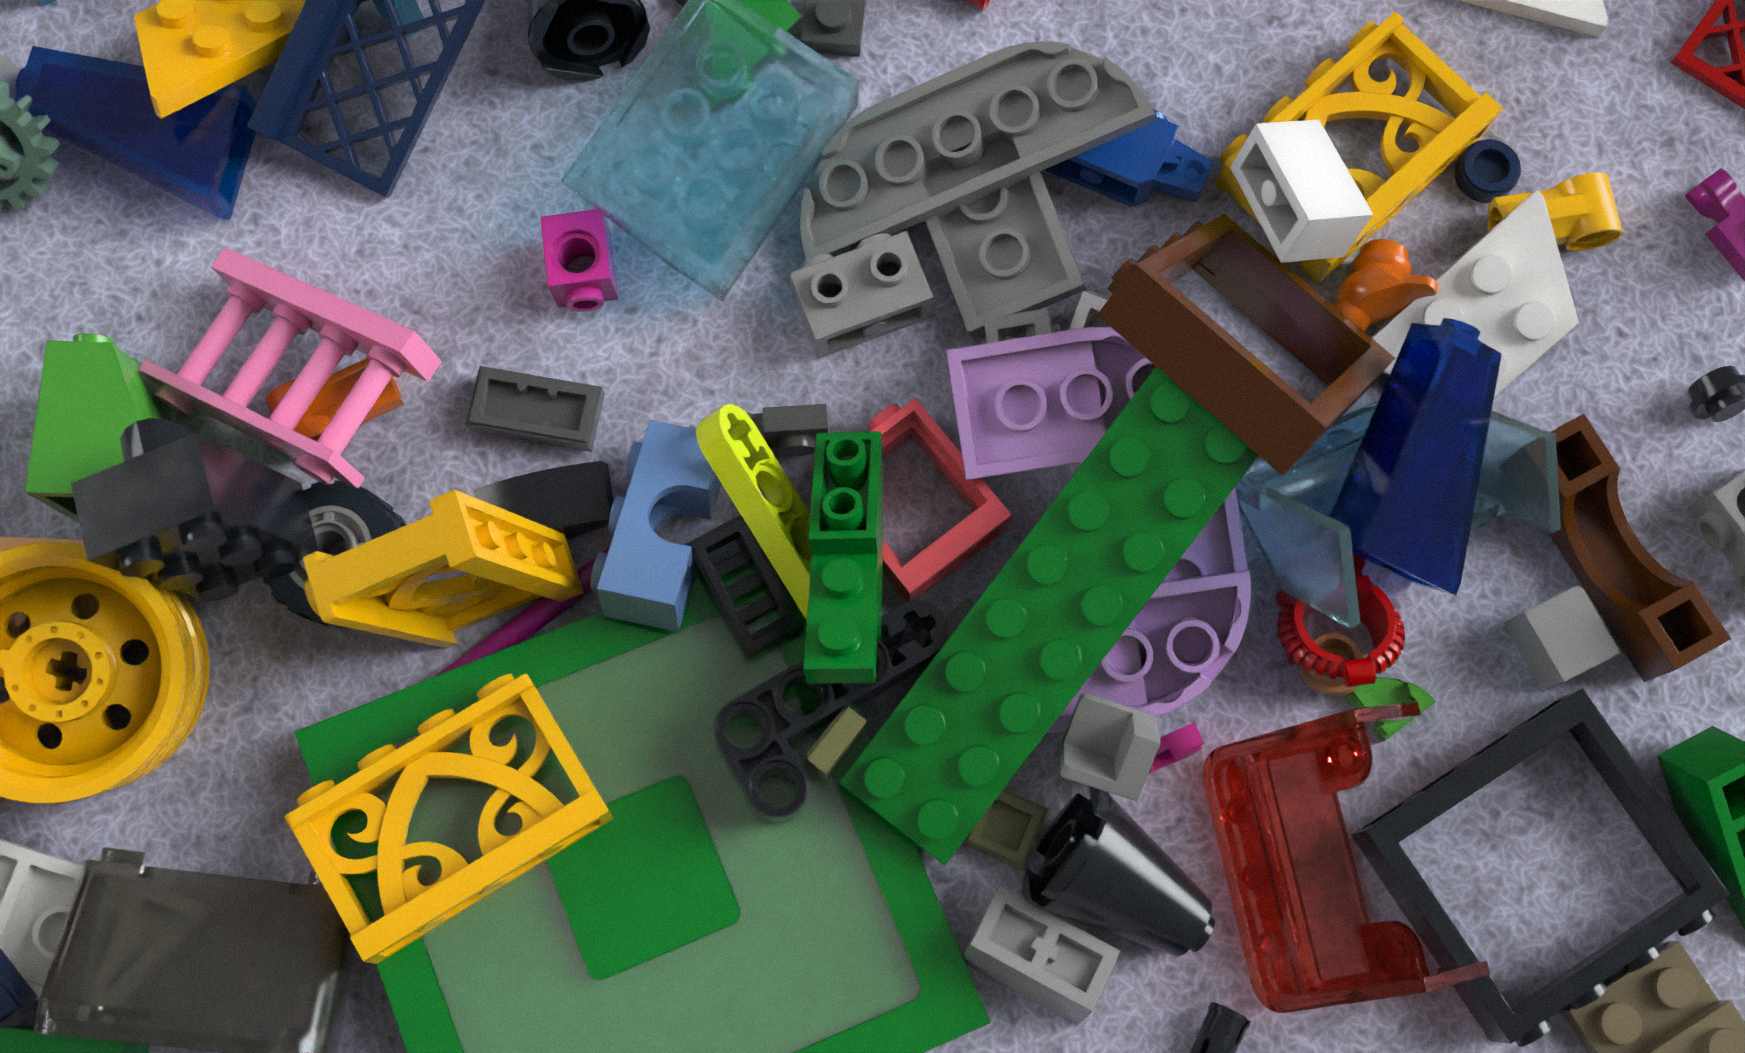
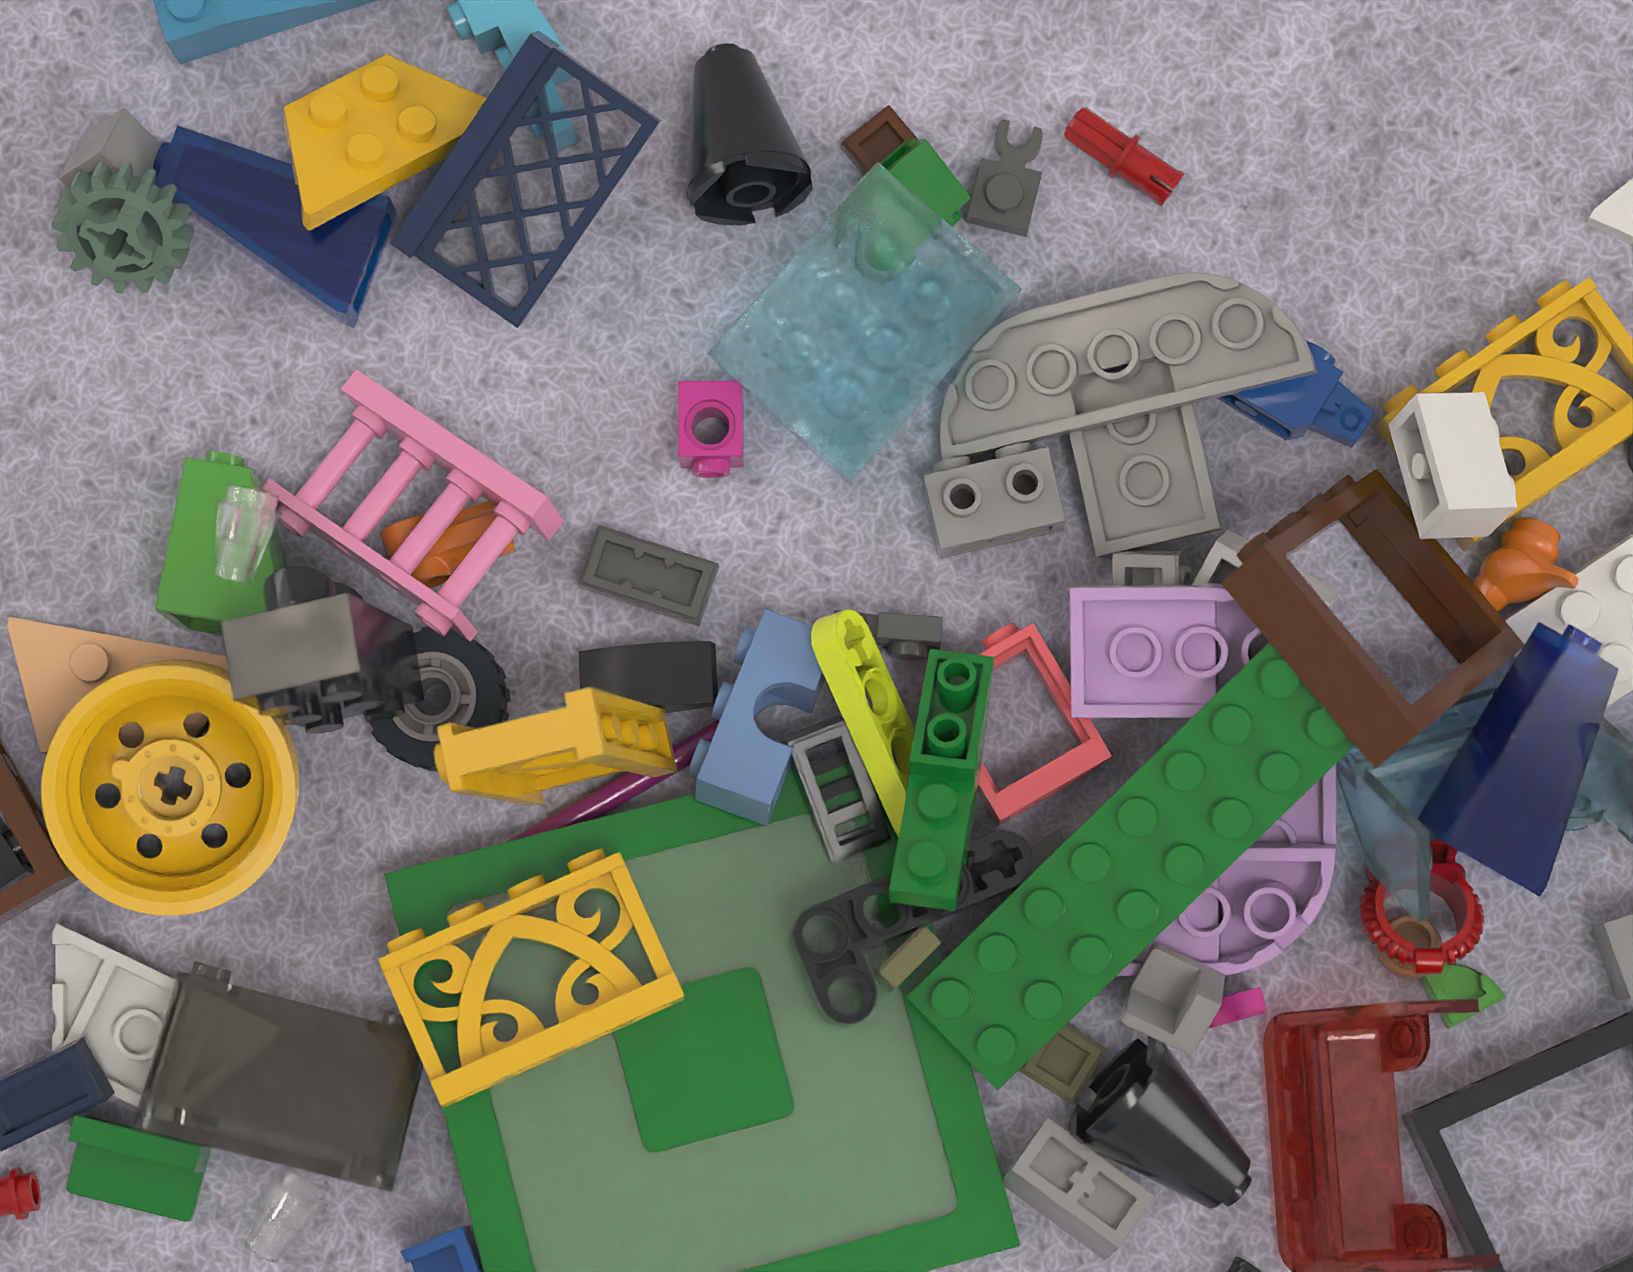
camera: 10 degrees right, 5 degrees up
(104, 399) = (243, 531): none -> clear cone

